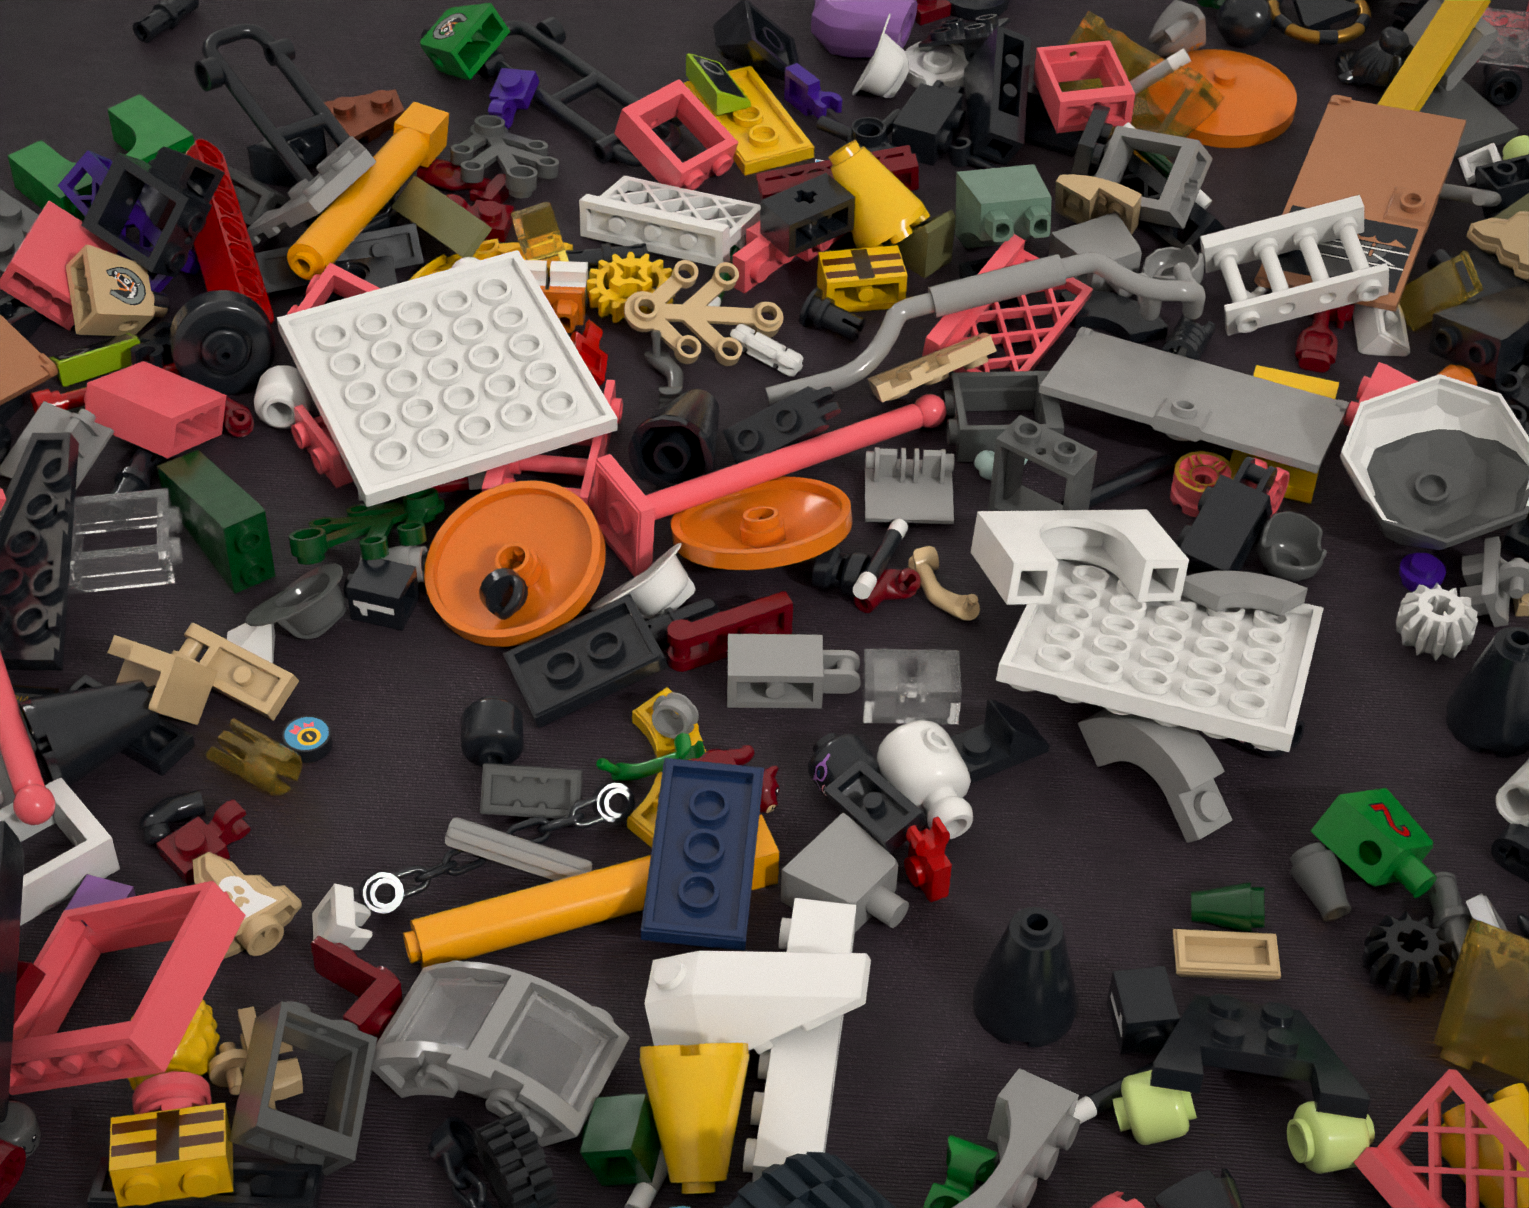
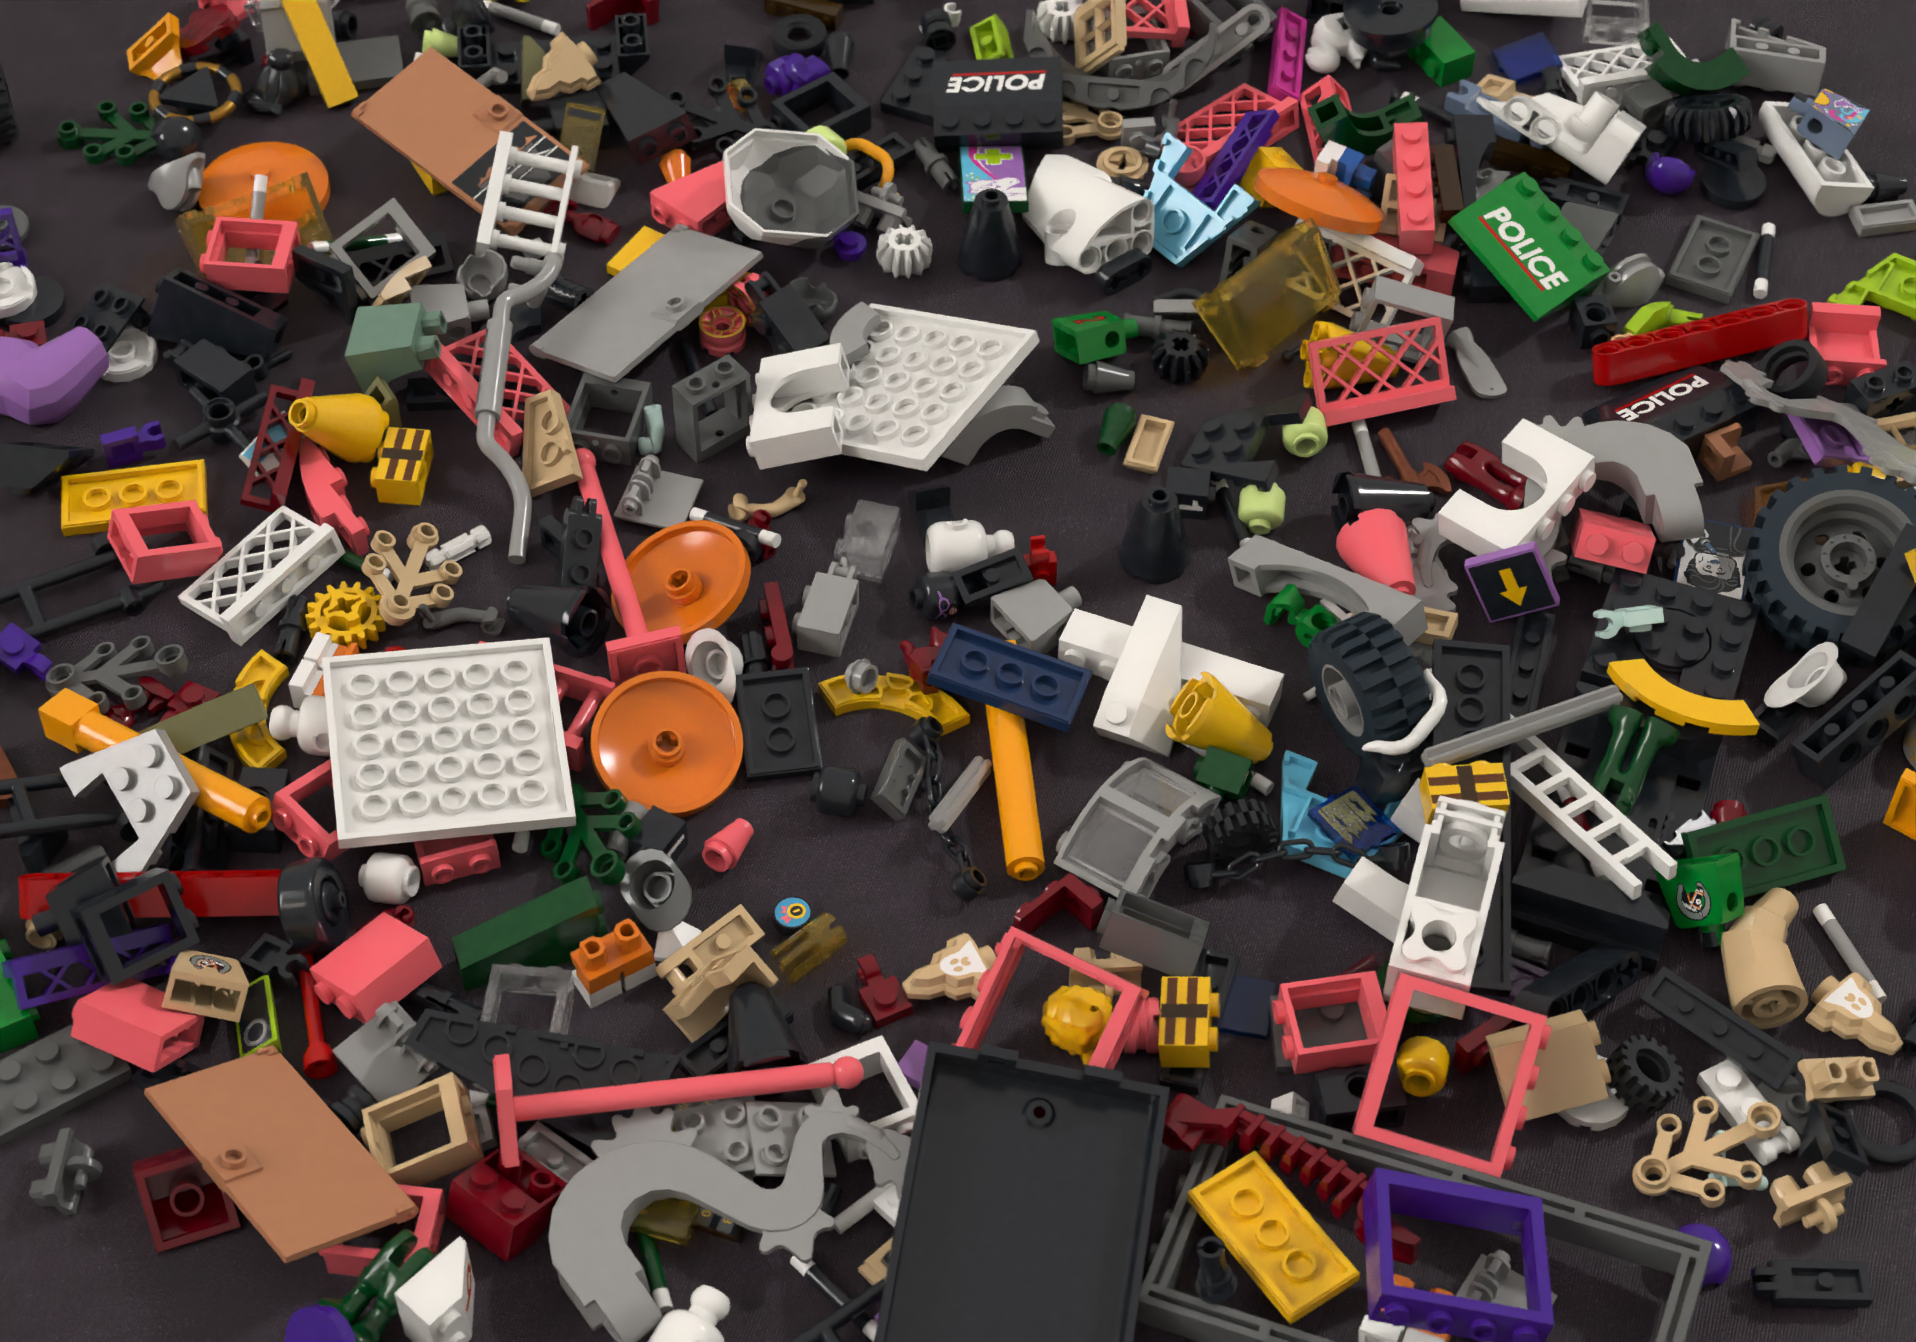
camera: 75 degrees left, 5 degrees up
(194, 586) = (611, 961): none -> orange hips
(339, 916) = (989, 914): white tile -> none
(392, 655) = (727, 845): none -> coral cone
(503, 592) = (699, 754): black tile -> none
(539, 234) = (269, 661): clear yellow panel -> none
(628, 772) = (896, 677): green piece -> none
(715, 85) = (88, 503): lime slope -> none
(807, 215) = (339, 467): black brick -> none
(828, 315) = (434, 499): black pin -> none
(885, 69) = (124, 381): white piece -> none

